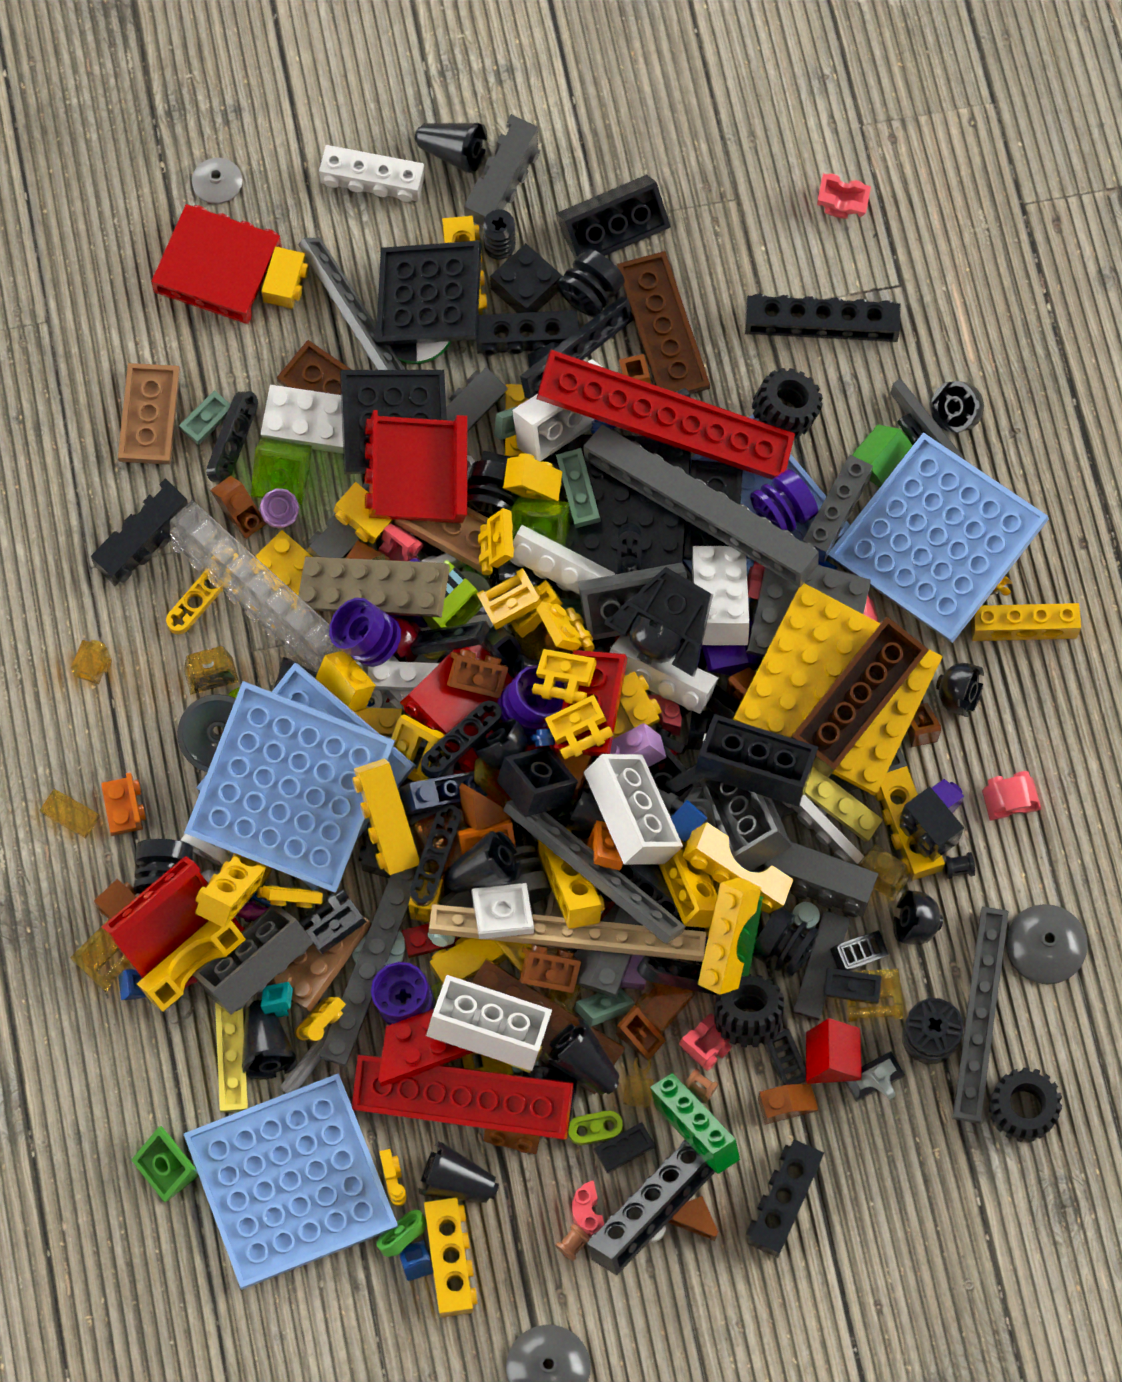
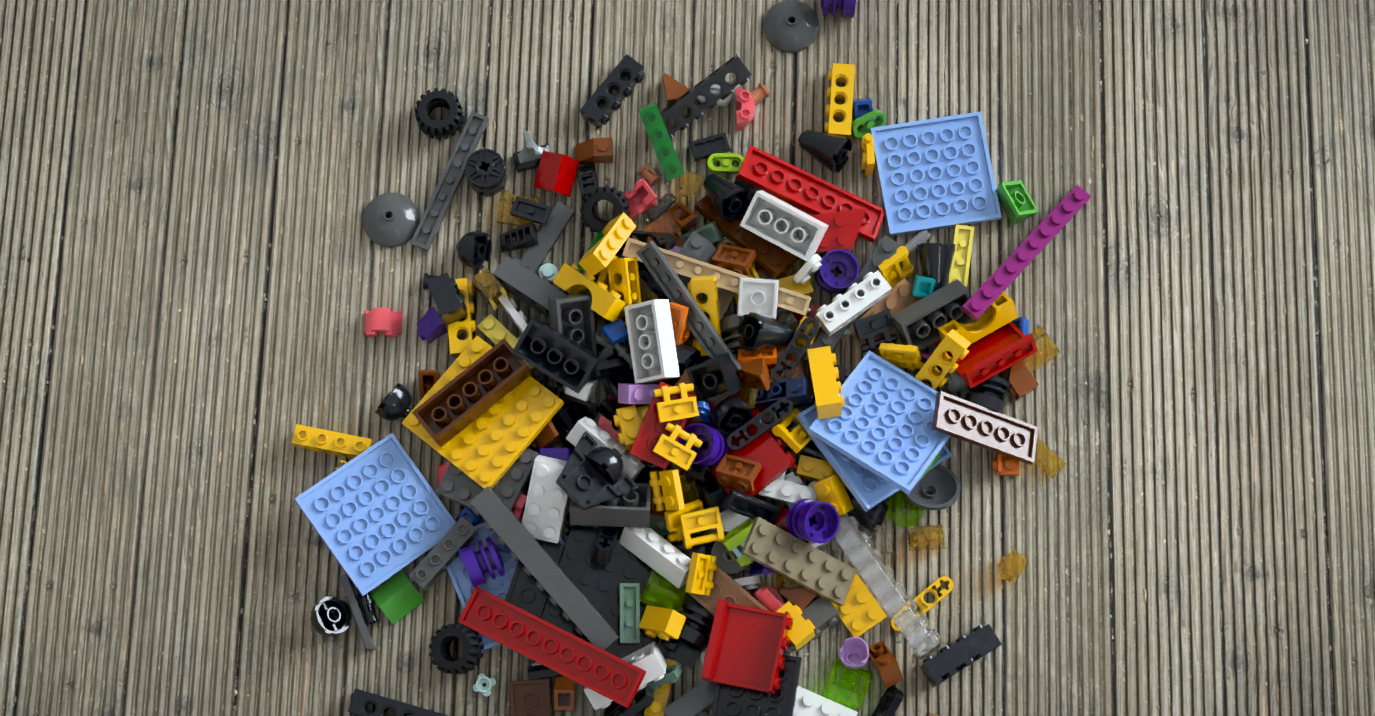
camera: 165 degrees left, 5 degrees up
(138, 1081) = (1025, 253): none -> magenta plate
(157, 812) = (985, 427): none -> plate
(370, 946) = (853, 303): none -> white brick
(436, 979) = (803, 274): none -> white plate
(667, 1047) = (665, 203): none -> clear smoke plate
(744, 371) = (478, 687): none -> light aqua plate
(785, 942) = (566, 247): black wheel -> none

